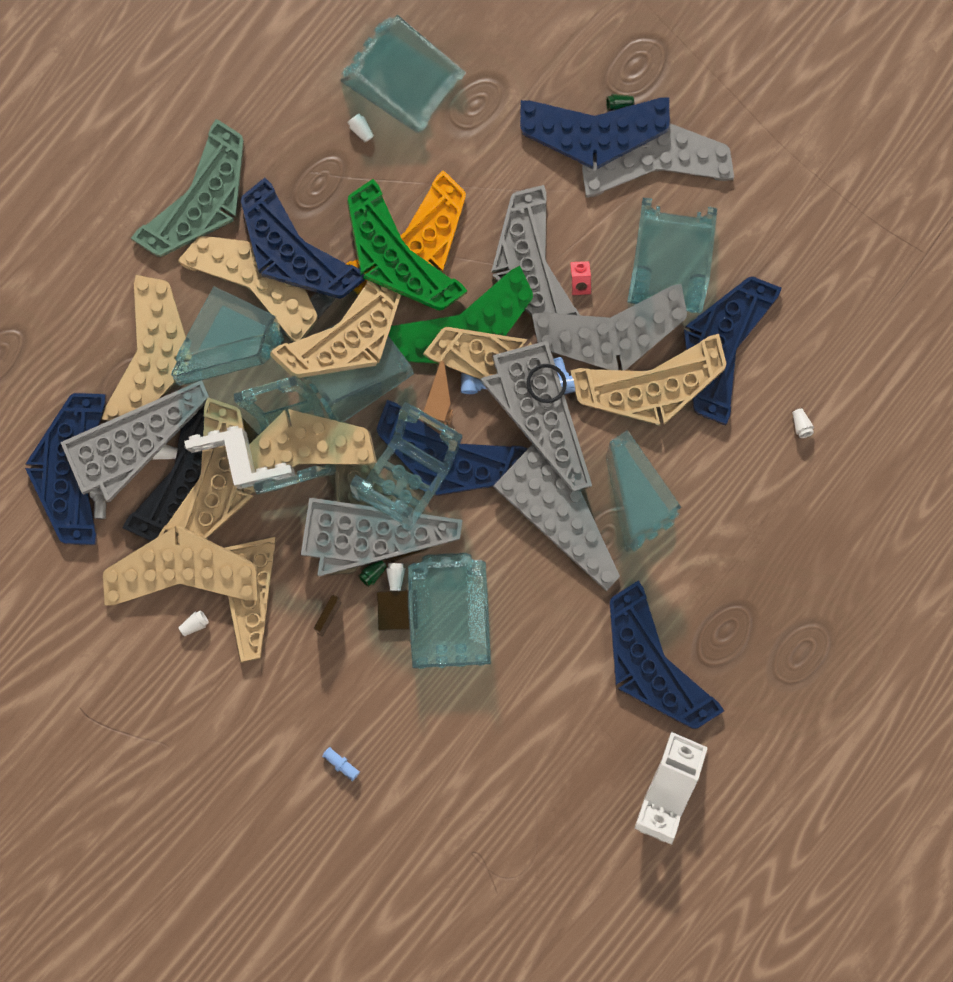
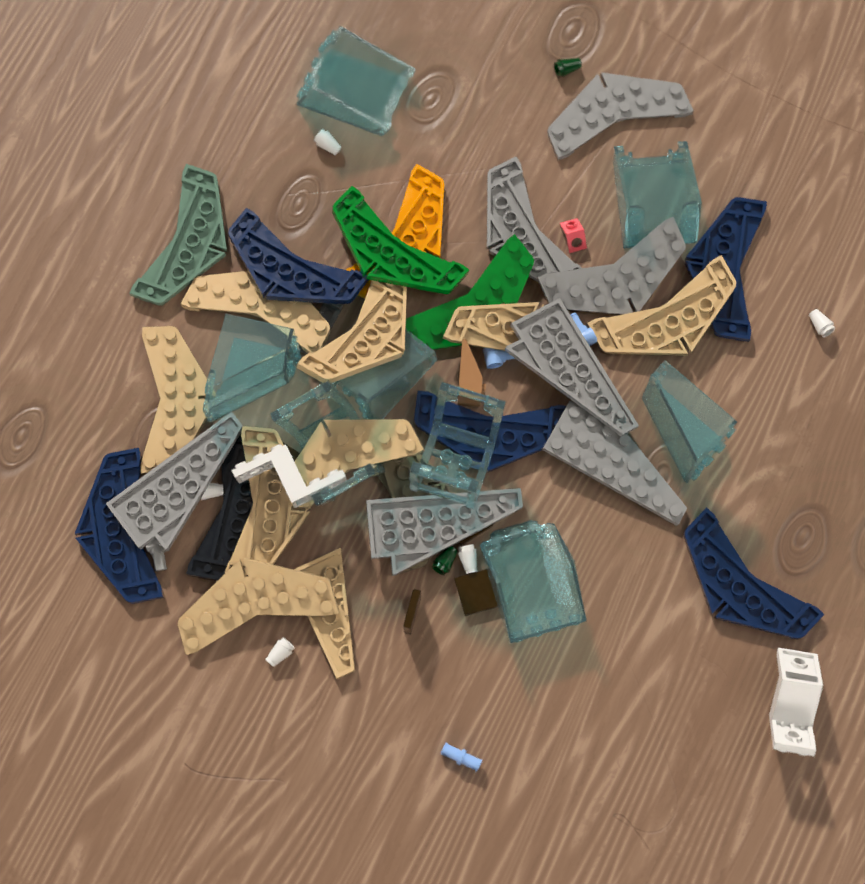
camera: 15 degrees left, 5 degrees down
(546, 366) = (569, 354): black tyre -> none
(606, 134) = (542, 102): dark blue wing -> none

